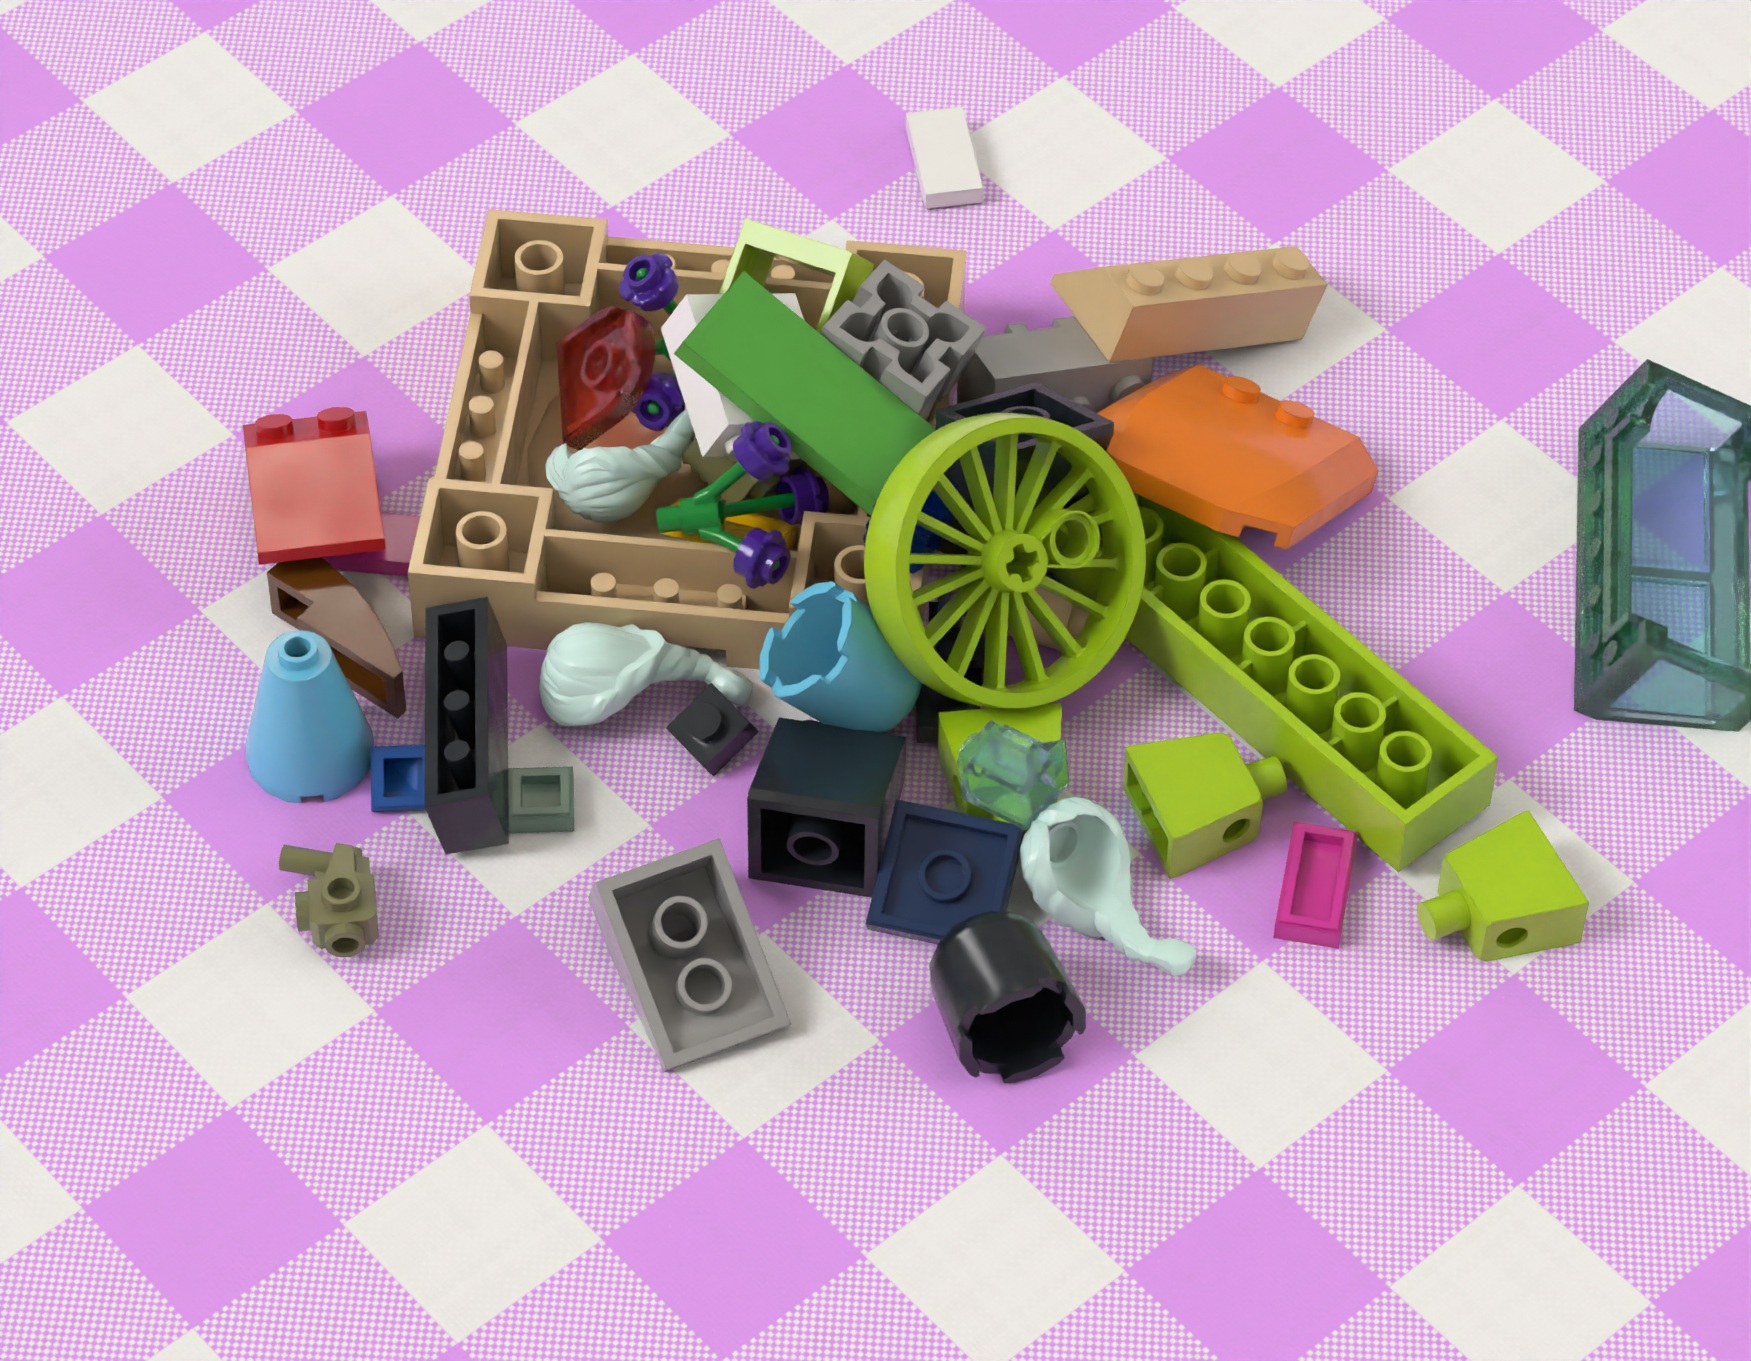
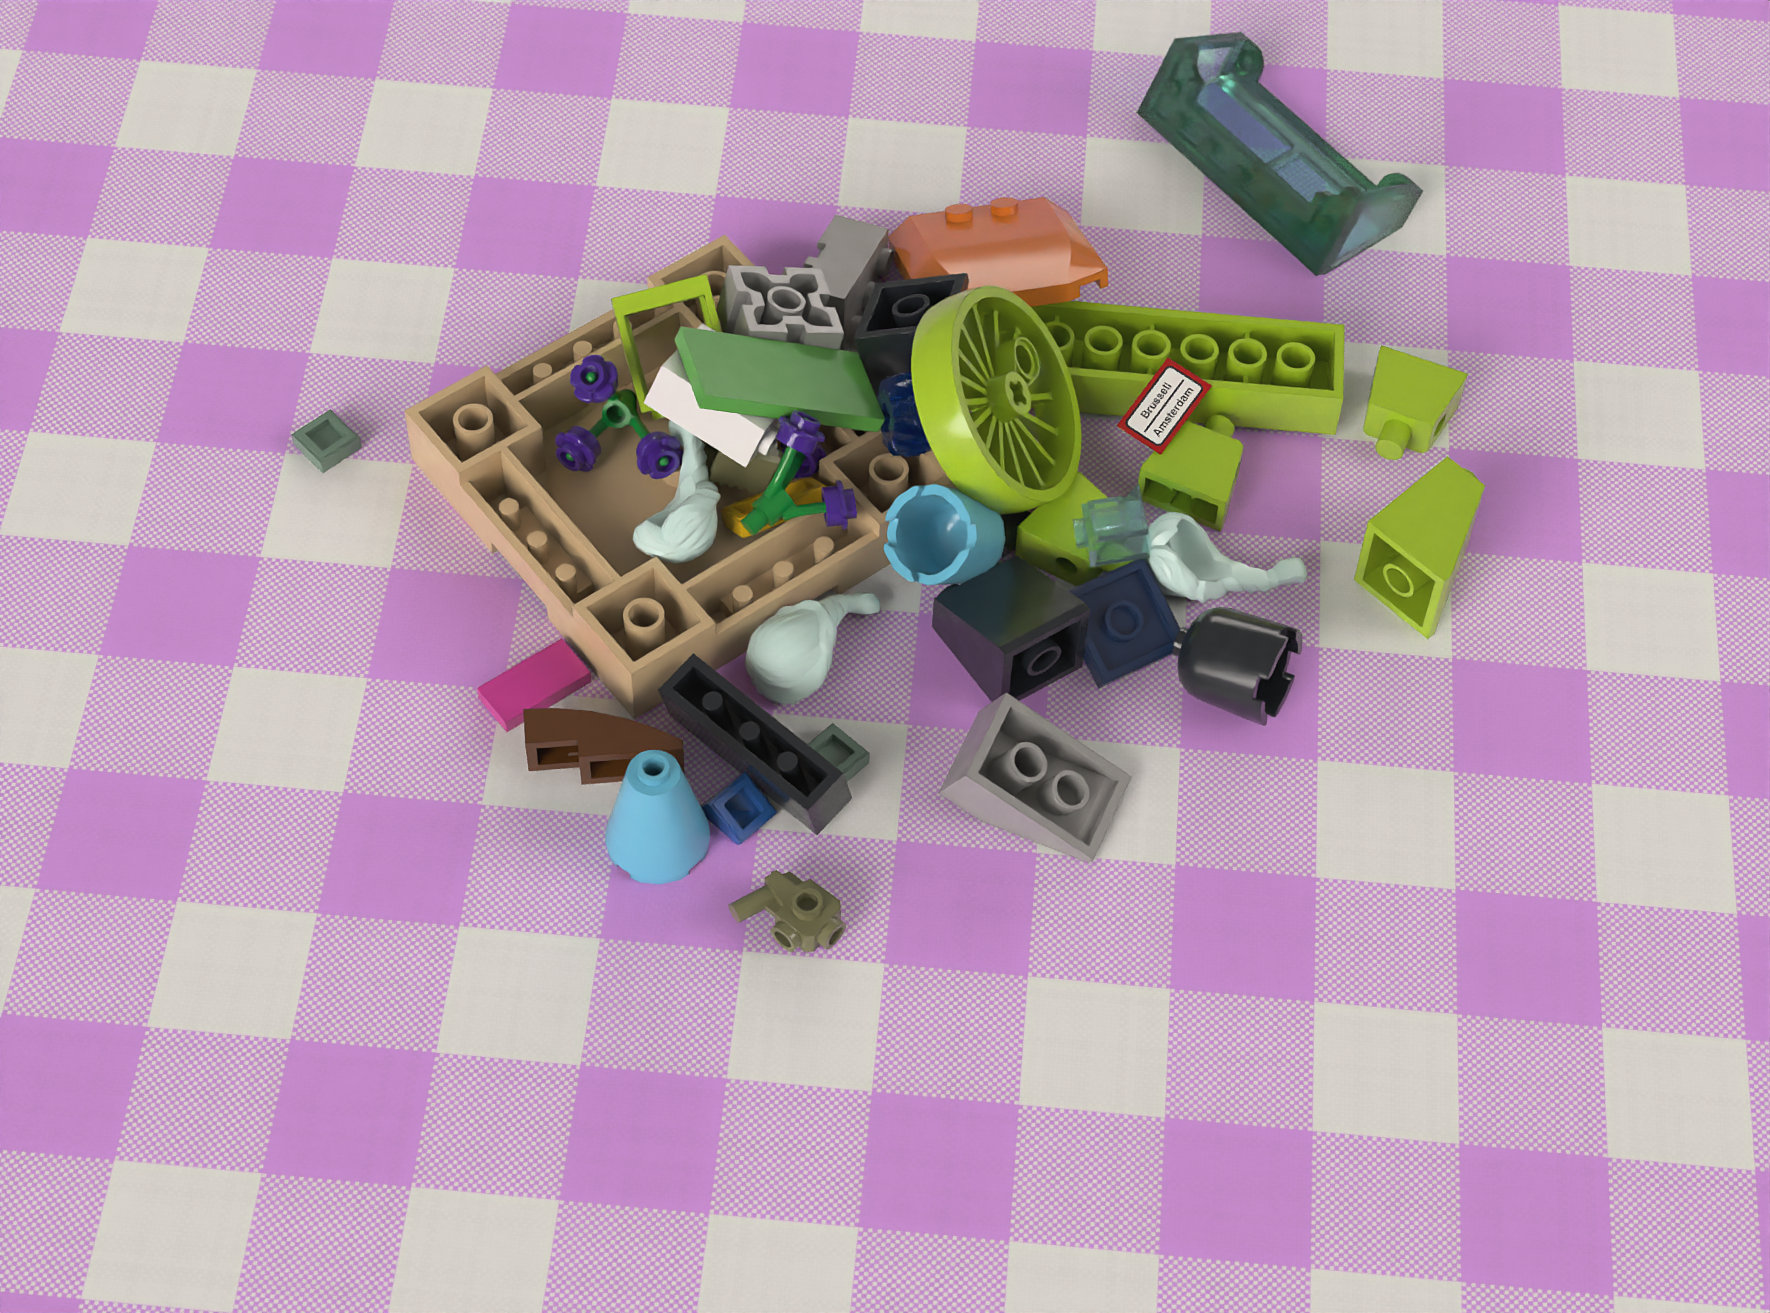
camera: 45 degrees left, 5 degrees up
(313, 486) = (491, 669): slope -> none
(433, 207) = (326, 441): none -> sand green tile
(603, 372) = (605, 460): clear red tile -> none
(712, 729) = (887, 637): black plate -> none
(944, 157) = (606, 193): white tile -> none
(1194, 302) = (868, 176): tan slope -> none
(1213, 702) = (1164, 406): none -> sticker
(1315, 885) = (1302, 475): dark pink tile -> none
(1335, 1025) = (1419, 543): none -> lime slope

